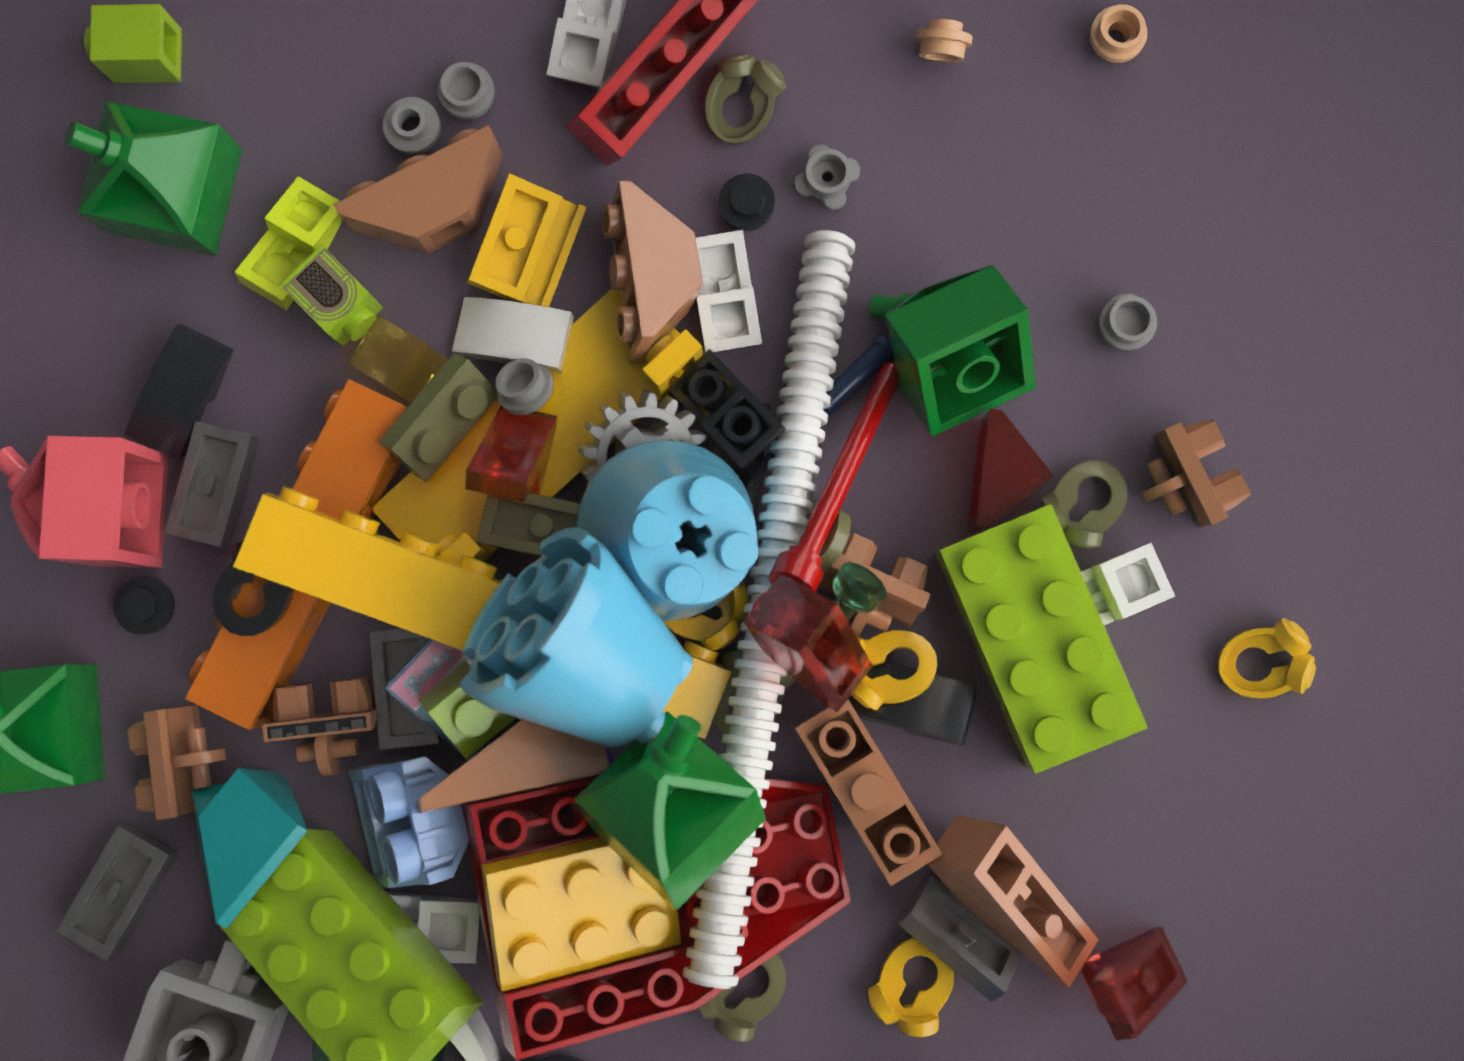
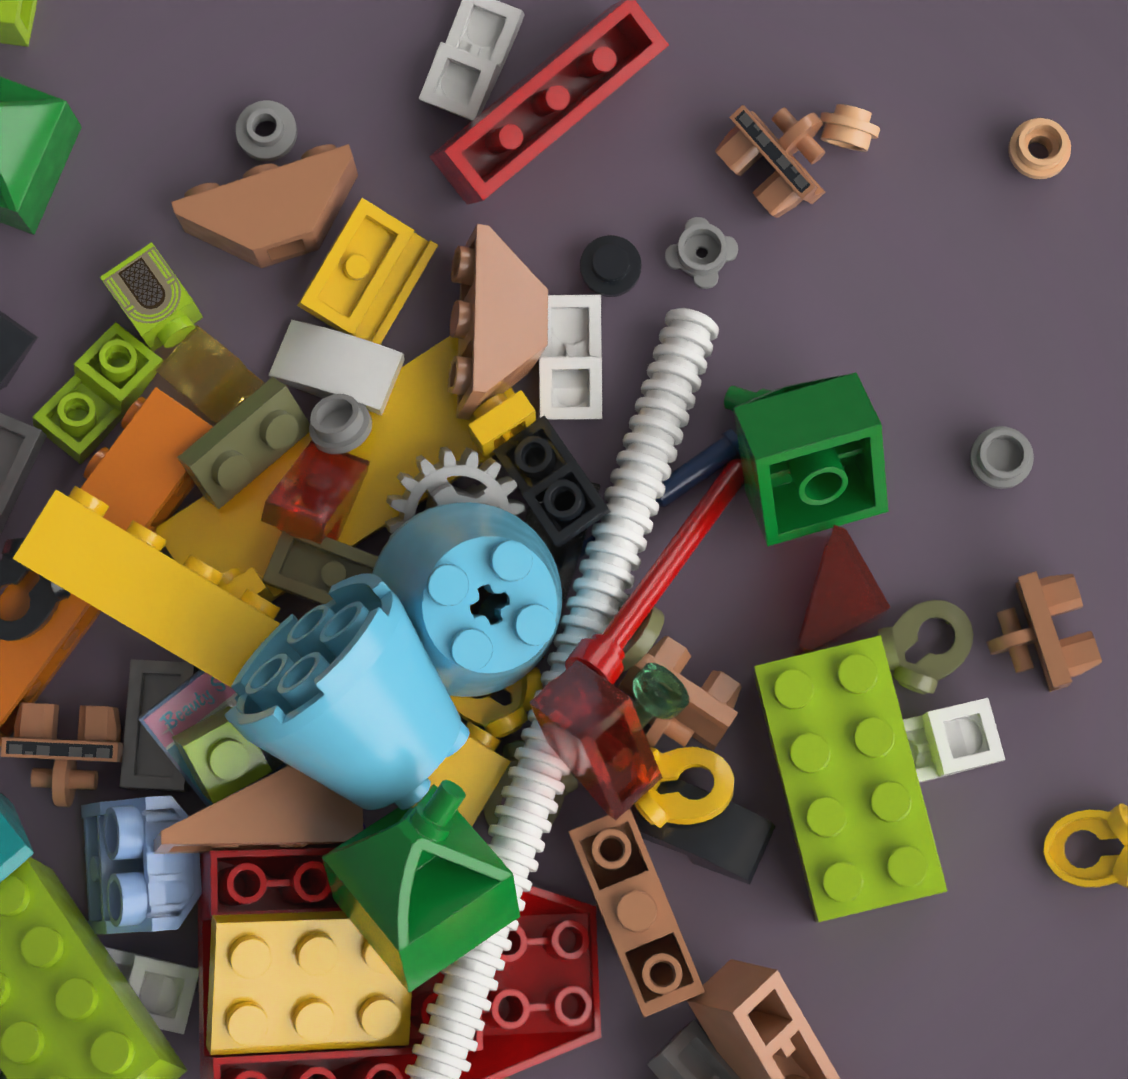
camera: 10 degrees right, 5 degrees down
(296, 228) = (124, 222): neon yellow slope -> none
(301, 388) = (99, 394): none -> lime slope
(466, 90) = (330, 102): light grey plate -> none
(767, 86) = (653, 146): olive piece -> none
(857, 65) = (753, 139): none -> nougat hips

